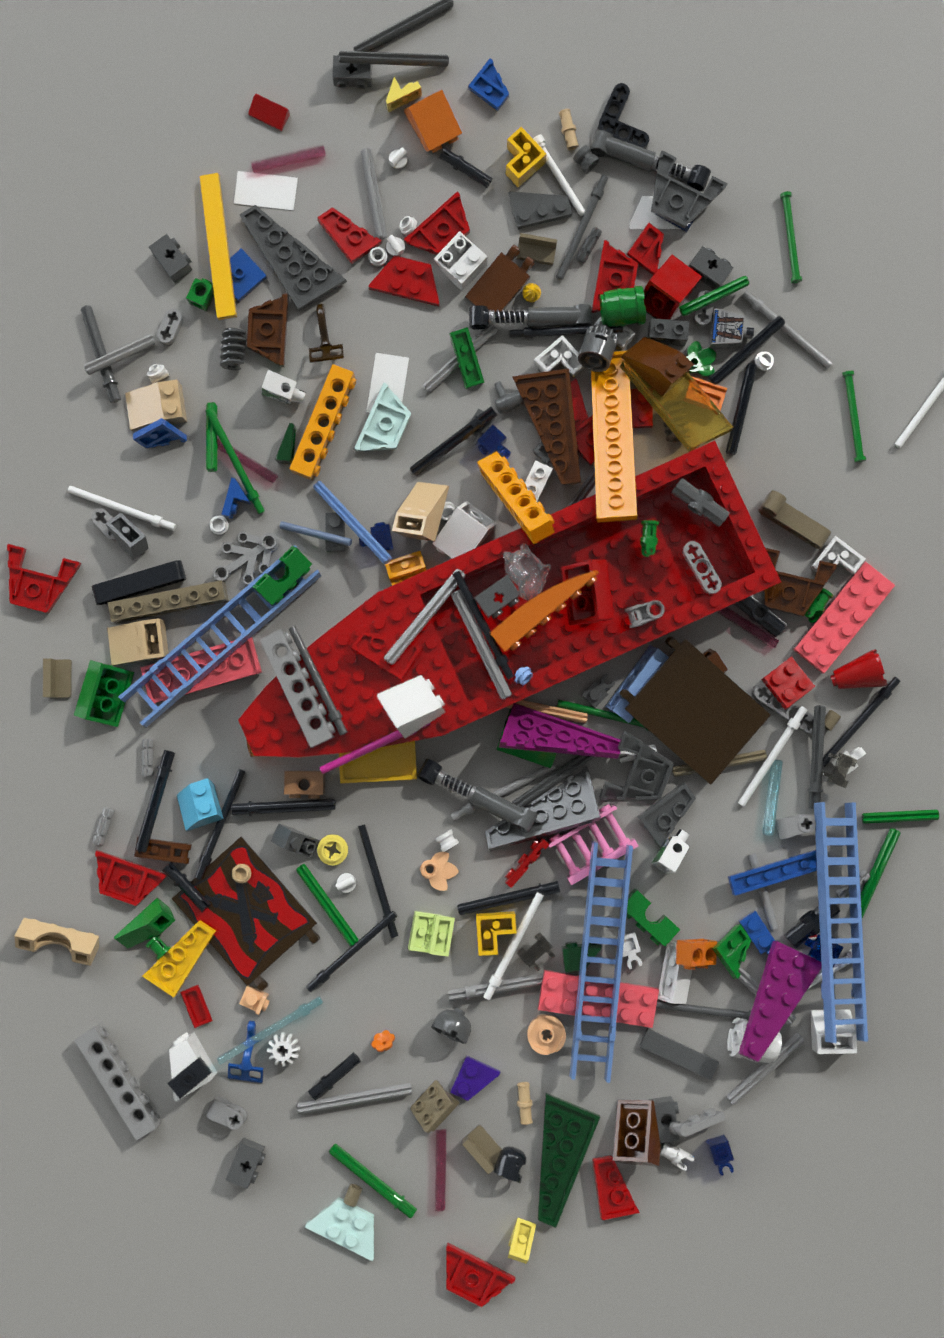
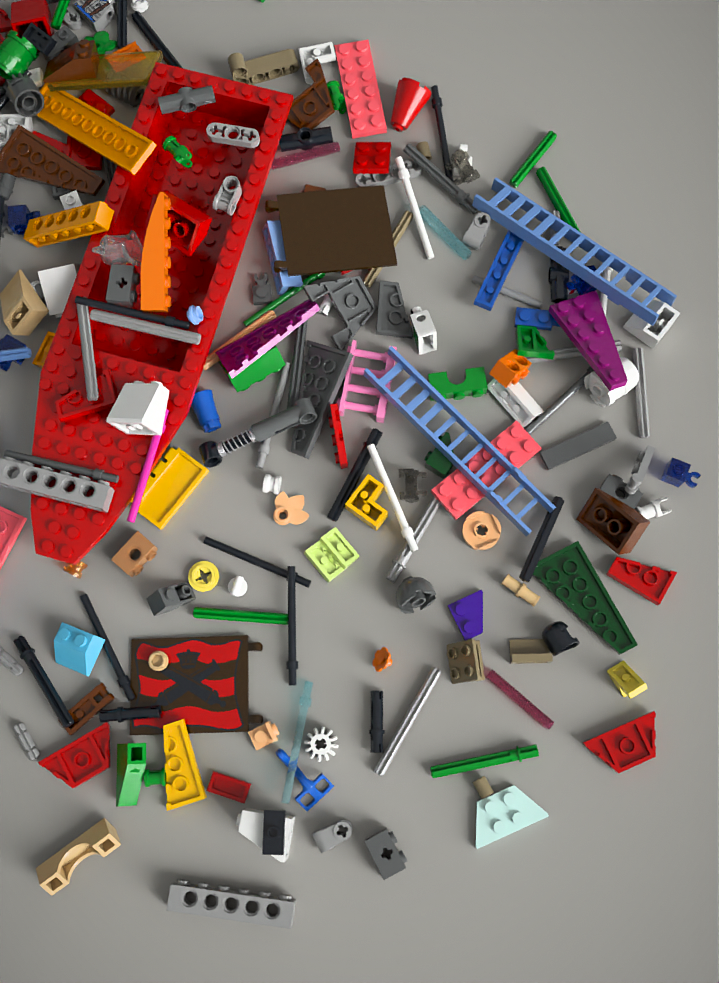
camera: 45 degrees left, 10 degrees down
(283, 806) = (138, 586): black axle -> none
(460, 740) = (206, 411): none -> blue plant
(576, 1088) = (541, 540): none -> black axle
(630, 949) = (469, 414): white plate -> none
(656, 316) = (39, 39): none -> black plate

